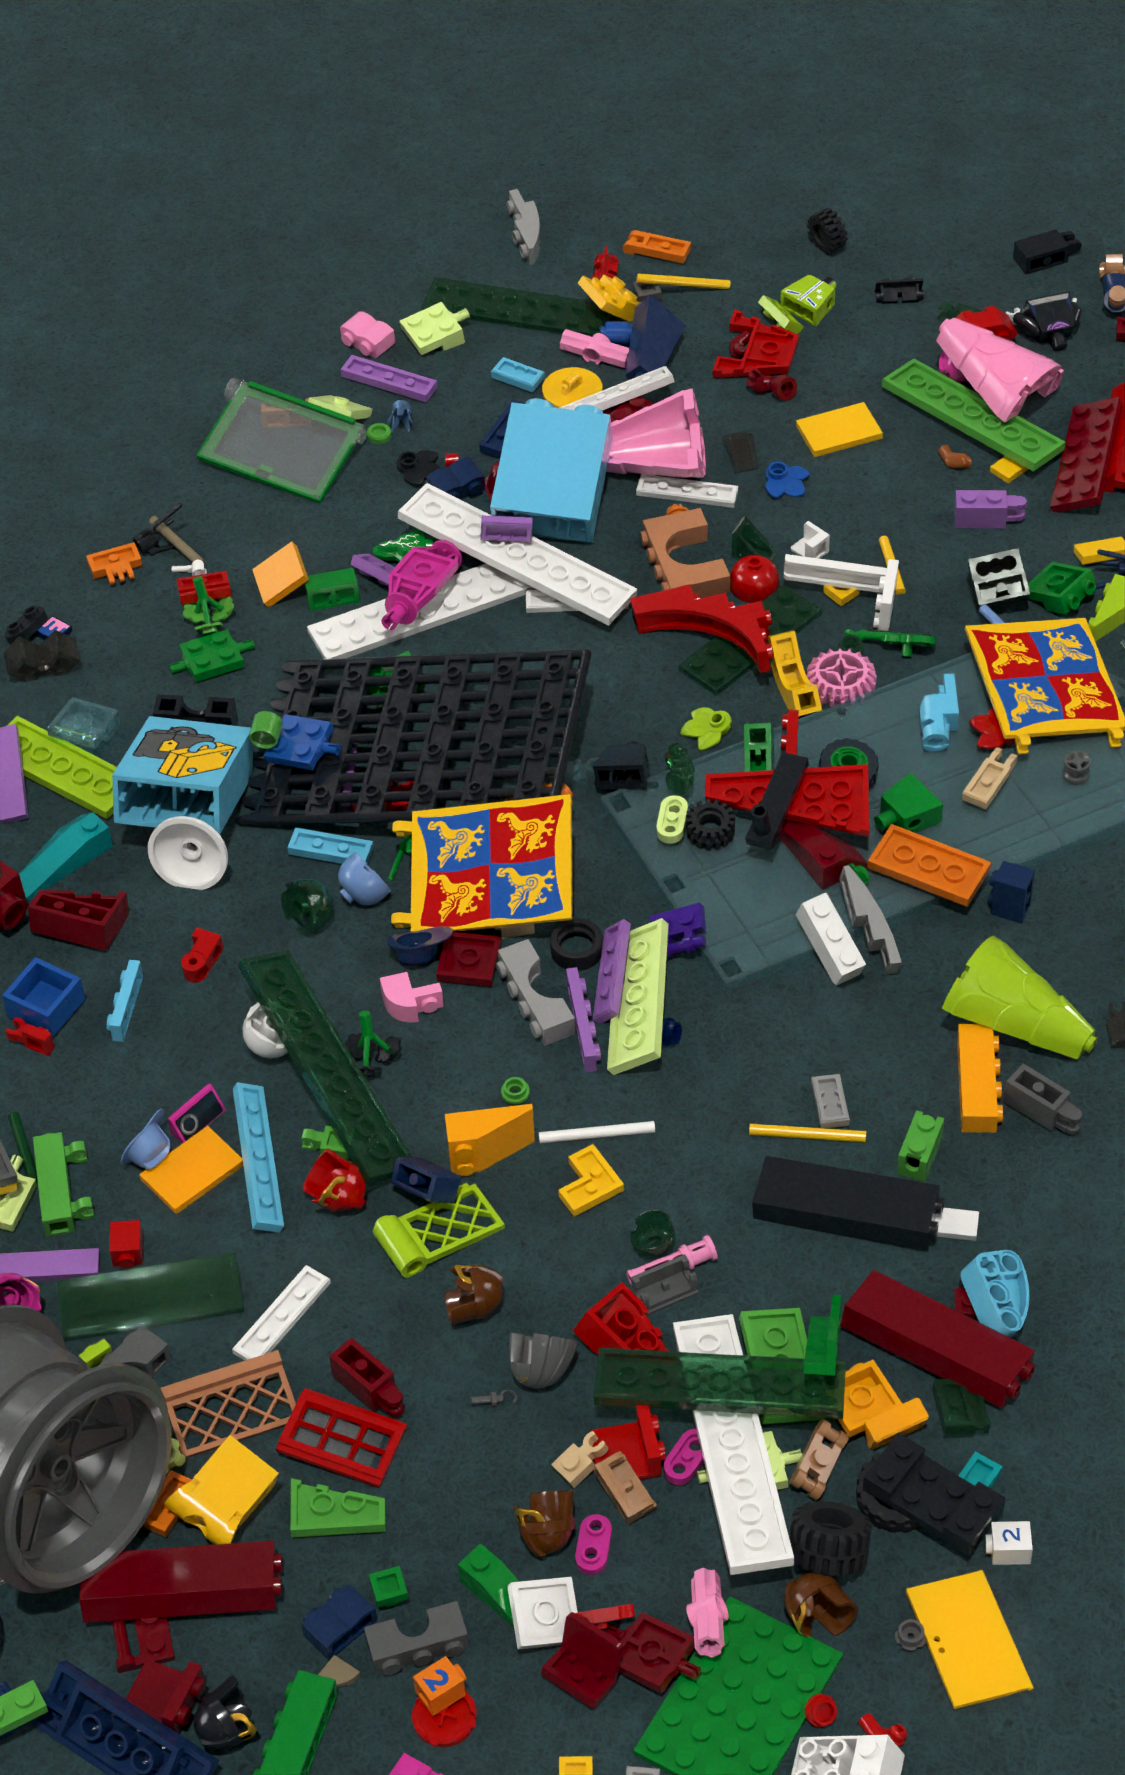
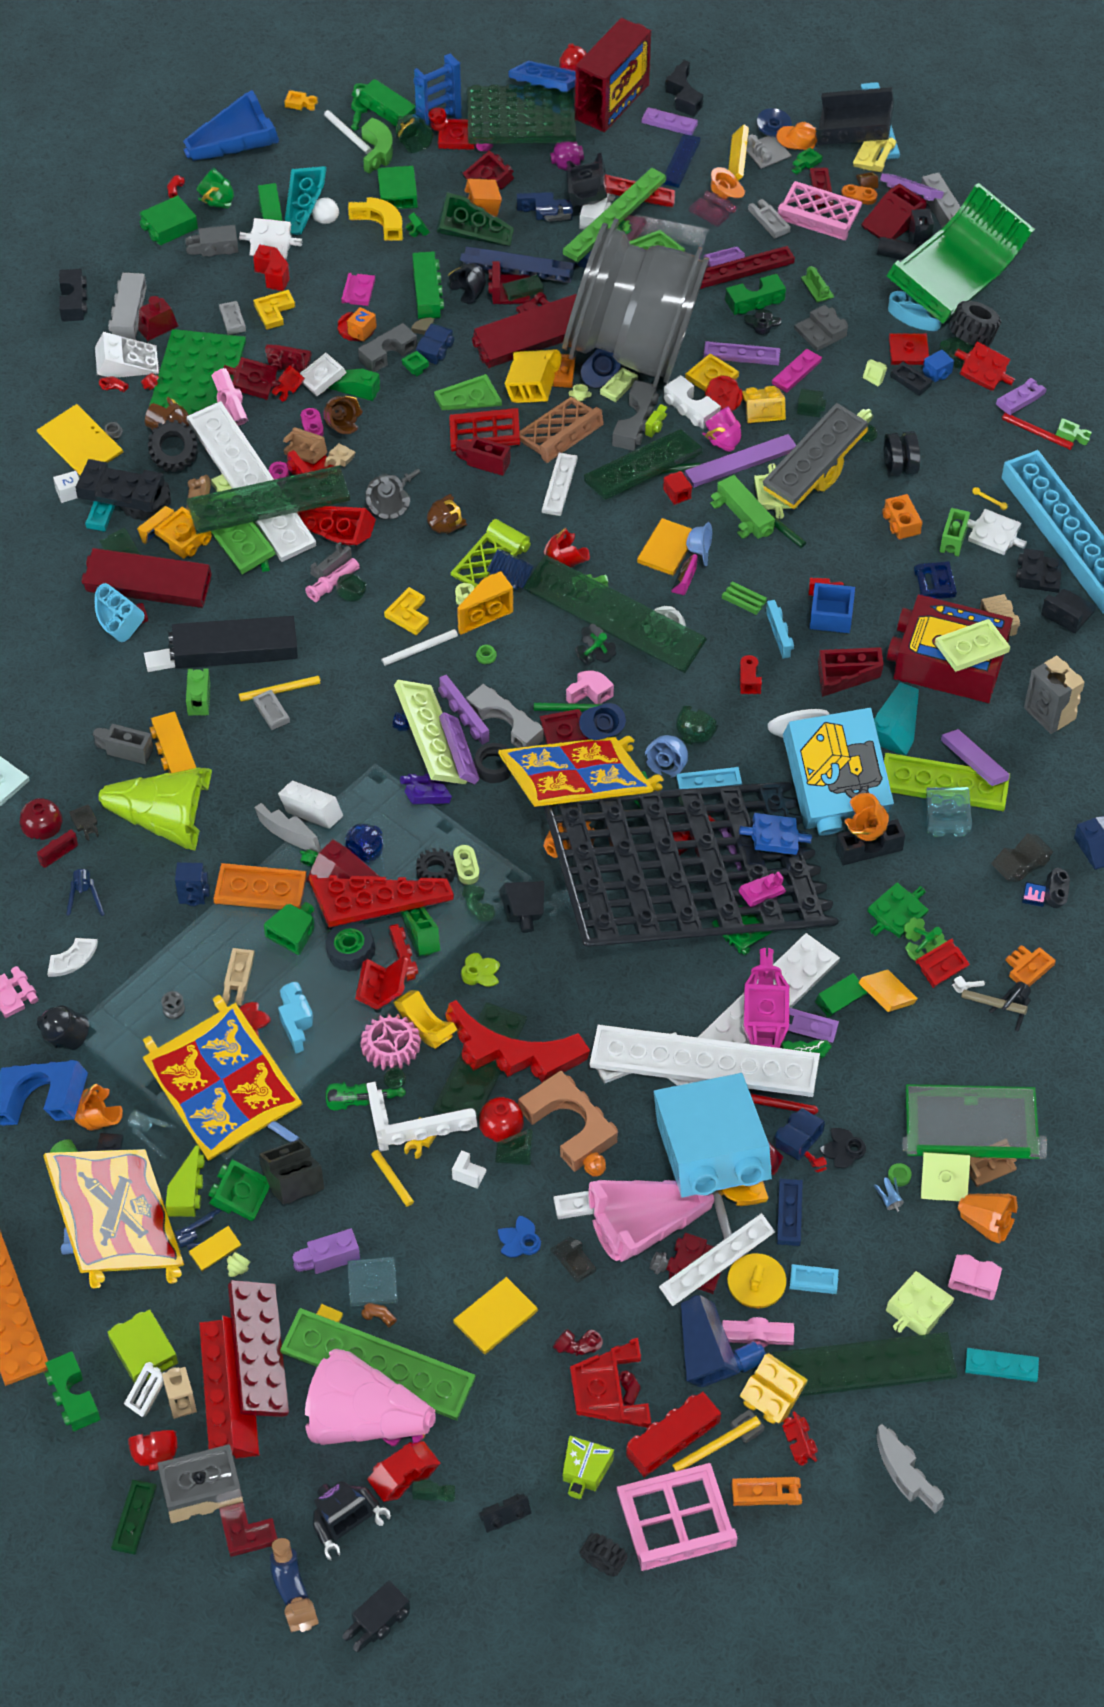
camera: 155 degrees right, 5 degrees up
(136, 1045) = (745, 595): none -> bright green tile
(145, 1679) = (523, 287): none -> clear green plate
(192, 698) = (869, 818): none -> orange helmet
(258, 1158) = (629, 561): medium azure plate -> none
(265, 729) = (799, 818): bright green piece -> none
(318, 366) = (989, 1214): none -> orange cone
(351, 689) = (762, 889): none -> dark pink plate
(388, 277) = (1002, 1365): none -> teal plate
(389, 378) = (926, 1234): medium lavender plate -> none
(449, 994) = (562, 706): none -> green bar
(497, 1185) = (463, 591): none -> yellowish green wheel
(506, 528) = (718, 1060): medium lavender plate -> none
(718, 294) = (673, 1433): none -> red brick
(750, 228) = (685, 1548): none -> bright pink window
(773, 809) = (388, 875): black piece -> none
(777, 312) = (605, 1434): lime plate -> none
(784, 865) = (365, 841): none -> clear blue plant
(823, 1341) = (214, 539): green fence -> none
(824, 710) = (381, 984): none -> red bracket
(945, 478) = (372, 1281): none -> clear light blue plate
(1081, 531) = (237, 1264): none -> yellowish green plate

